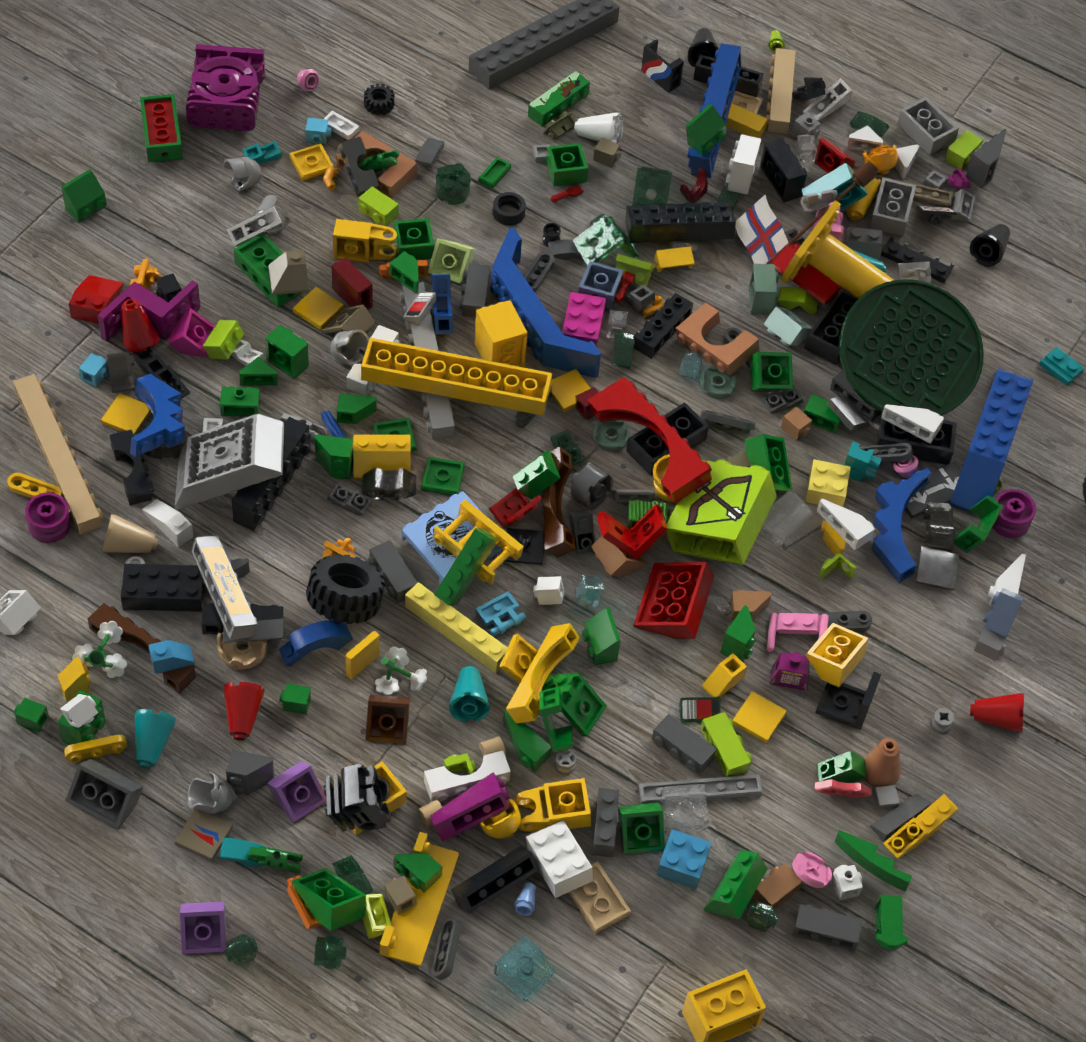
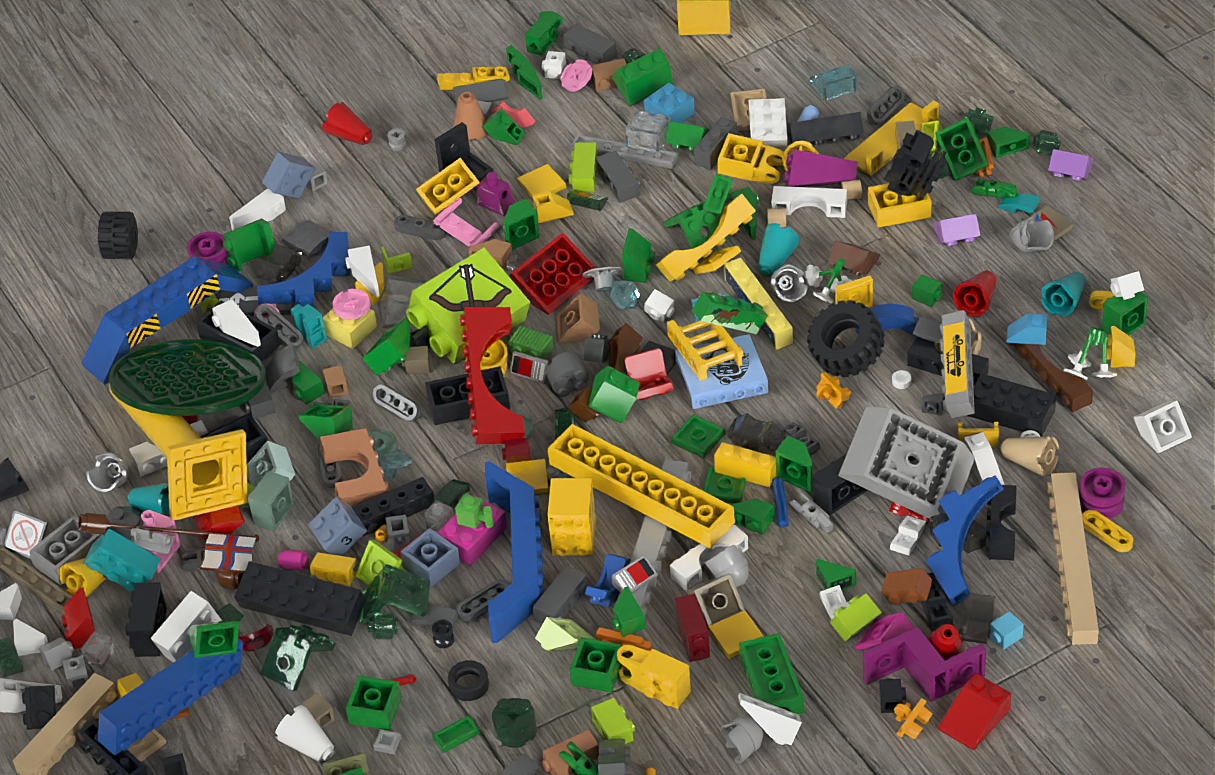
camera: 145 degrees left, 10 degrees down
(31, 714) = (1167, 340): green brick -> none
(103, 792) = (1115, 263): dark grey slope -> none
(126, 414) = (989, 578): yellow tile -> none
(179, 549) = (991, 434): none -> yellow hinge
(190, 372) = (906, 586): none -> dark orange brick
(239, 401) = (865, 554): green brick -> none
(249, 771) = (992, 240): dark grey slope -> none
(281, 594) = (901, 379): none -> white tile
(287, 351) = (795, 578): green brick -> none
(287, 937) = (1007, 141): none -> green slope
(289, 273) = (757, 643): dark tan slope -> none
(393, 569) = (791, 363): dark grey brick -> none
(419, 869) = (884, 141): green slope -> none
(436, 651) = (794, 285): none -> light grey helmet
(460, 763) = (812, 210): lime bracket -> none
(582, 306) = (471, 512): none -> bright green brick
(622, 605) = (603, 279): none -> light grey wheel
(639, 537) = (561, 319): red bracket -> none
(691, 282) = (337, 527): none -> sand blue brick
(711, 259) = (293, 560): none -> dark pink brick
(830, 480) = (351, 304): none -> bright pink tile
(833, 132) = (56, 652): none -> light grey brick
(883, 158) = (22, 602): light orange cylinder -> none
(903, 254) = (82, 495): black hinge -> none
(1061, 366) = (43, 367): teal plate -> none

